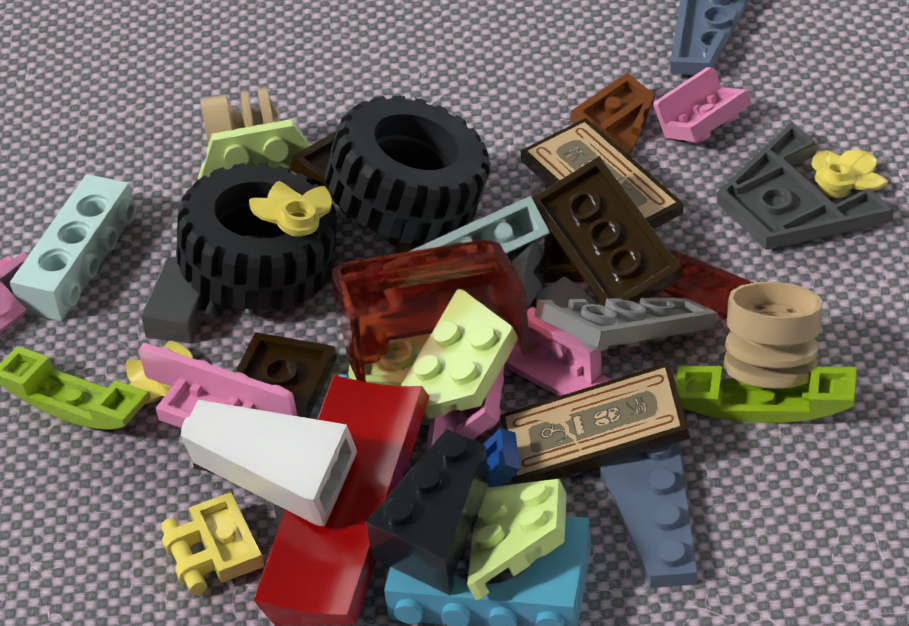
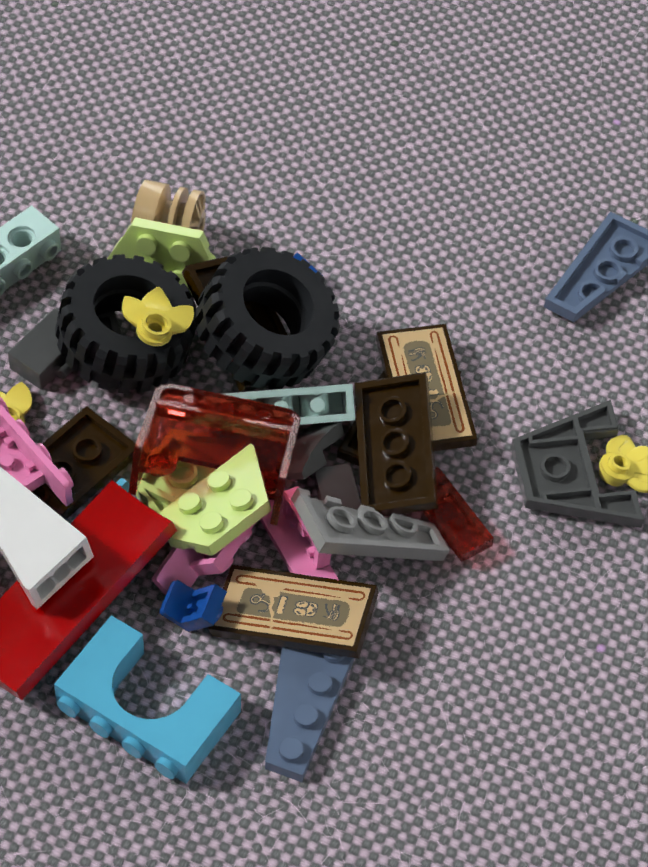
camera: 15 degrees right, 10 degrees up
(431, 512) = (120, 636): black wedge -> none
(515, 530) = (176, 679): yellowish green wing -> none
(618, 111) = (477, 329): dark orange wing -> none
(699, 107) = (544, 352): bright pink bracket -> none
(710, 394) = (444, 644): lime slope -> none
(772, 334) = (473, 596): tan wheel -> none

